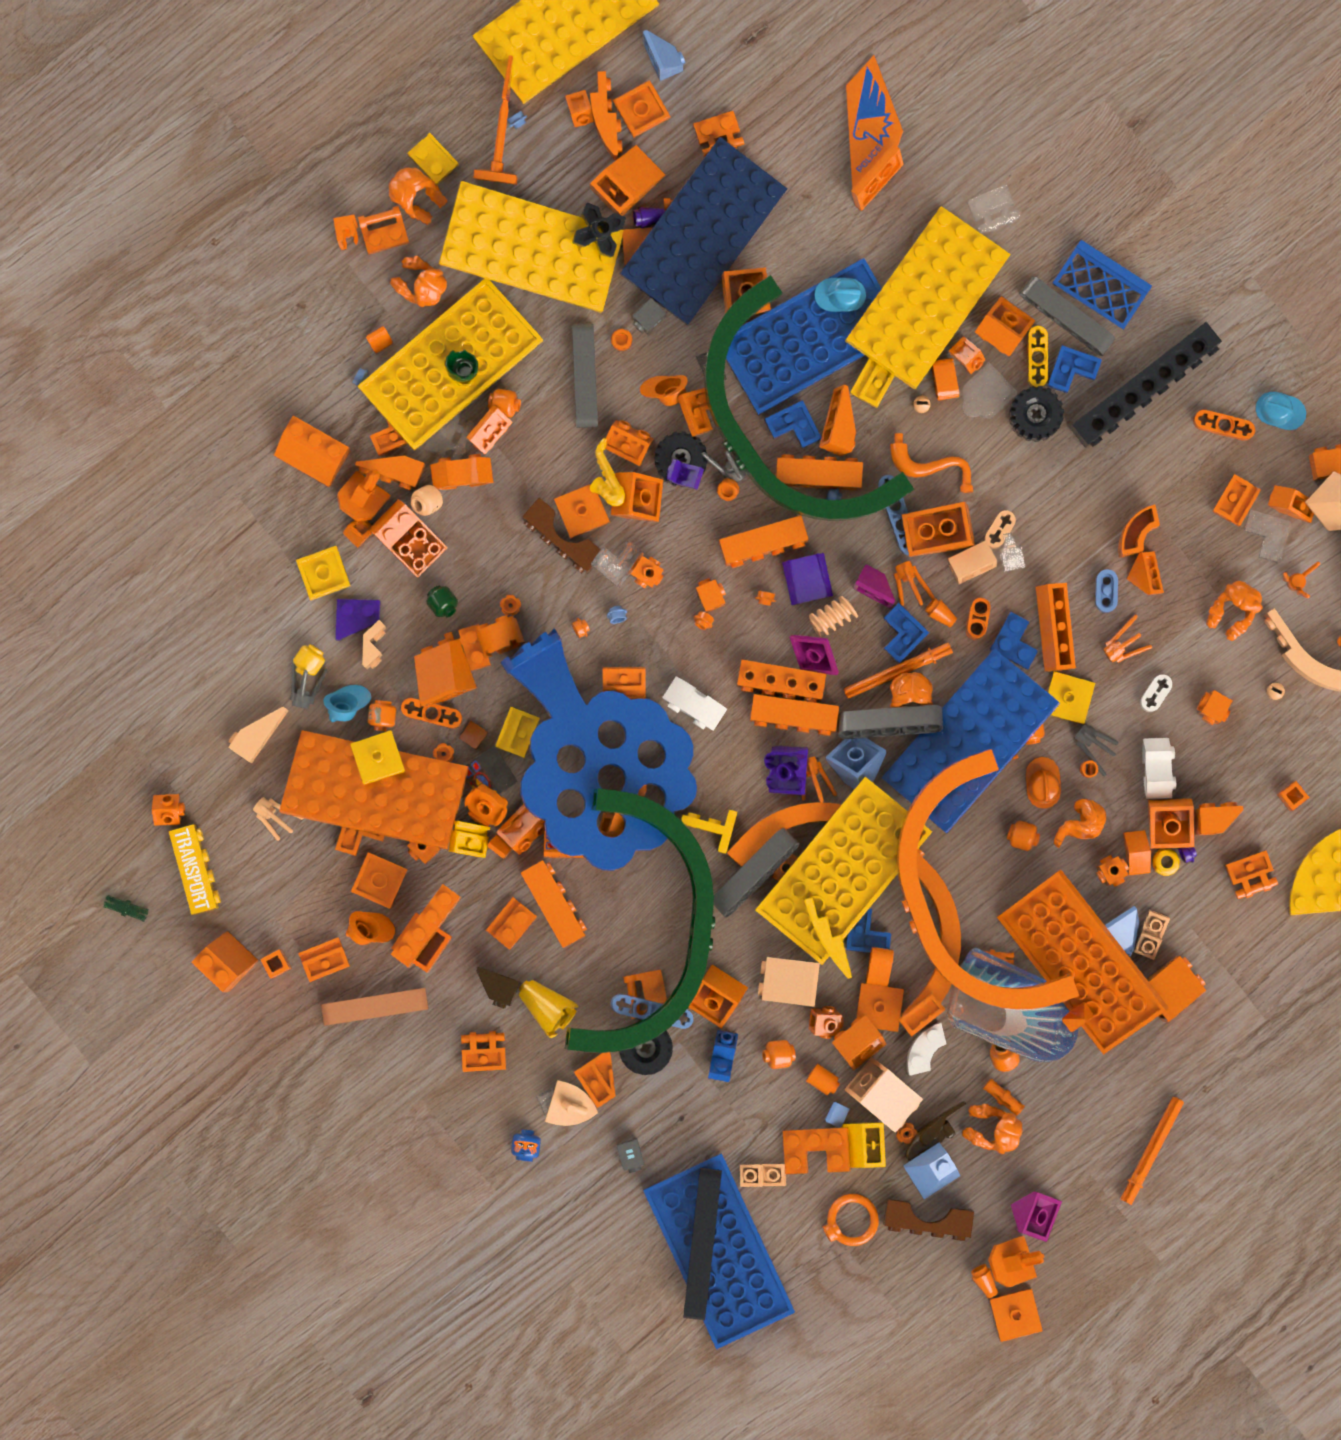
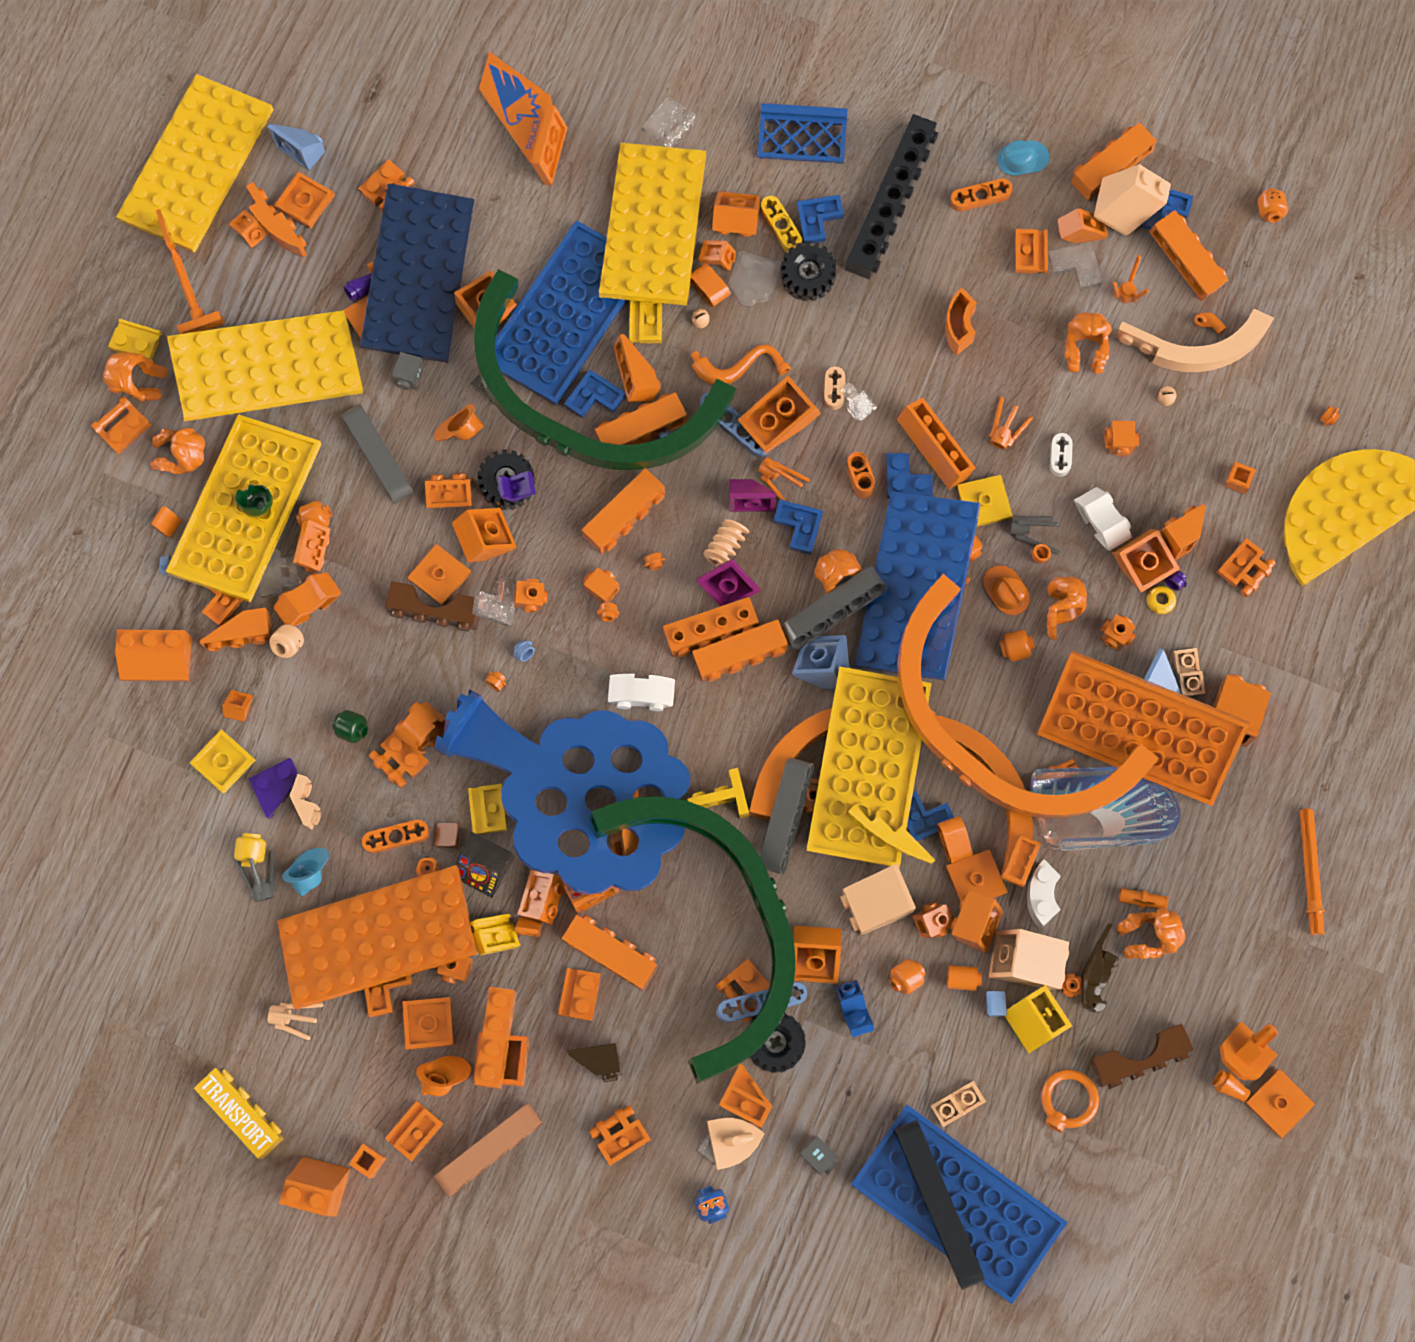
camera: 20 degrees left, 10 degrees down
(125, 908) = (190, 1189): clear green pin -> none
(167, 809) = (182, 1068): orange brick -> none
(253, 737) = (234, 950): light nougat slope -> none
(346, 227) = (83, 438): orange hinge -> none
(362, 497) = (223, 671): orange piece -> none
(377, 757) = (363, 903): yellow plate -> none
(381, 715) = (347, 863): orange head -> none
(408, 538) = (287, 686): orange slope -> none
(442, 672) = (385, 790): orange slope -> none
(485, 796) = (497, 883): orange plate -> none
(510, 599) = (415, 690): orange plate -> none
(517, 120) = (195, 267): medium blue plate -> none
(547, 1006) = (658, 1054): yellow cone -> none
(604, 241) = (319, 317): black plant -> none
(610, 489) = (455, 537): yellow piece -> none
(621, 339) = (394, 405): orange tile -> none
(625, 680) = (563, 705): orange plate -> none
(626, 180) = (323, 267): orange slope -> none
(694, 410) = (496, 428): orange plate -> none
(728, 489) = (565, 483): orange tile -> none
(731, 469) = (560, 463): dark grey plant -> none
(787, 769) = (762, 705): dark purple slope -> none
(807, 579) = (683, 523): dark purple slope -> none
(812, 770) = (784, 691): orange plant -> none
(832, 1140) = (1007, 1031): orange plate -> none
(840, 294) = (572, 261): dark azure piece -> none
(891, 673) = (834, 534): orange axle -> none
(932, 1170) = (1118, 1006): medium blue slope -> none
(940, 612) = (823, 488): orange cone -> none
(972, 562) = (826, 428): light nougat hinge -> none
(1003, 1059) = (1121, 859): orange head -> none
(1035, 1215) = (1240, 994): magenta slope -> none
(1067, 316) = (787, 175): dark grey beam -> none
(1077, 1017) = (1168, 782): orange slope -> none
(1106, 591) = (963, 390): medium blue plate -> none
(1137, 852) = (1131, 603): orange slope -> none
(1146, 574) = (988, 356): orange slope -> none

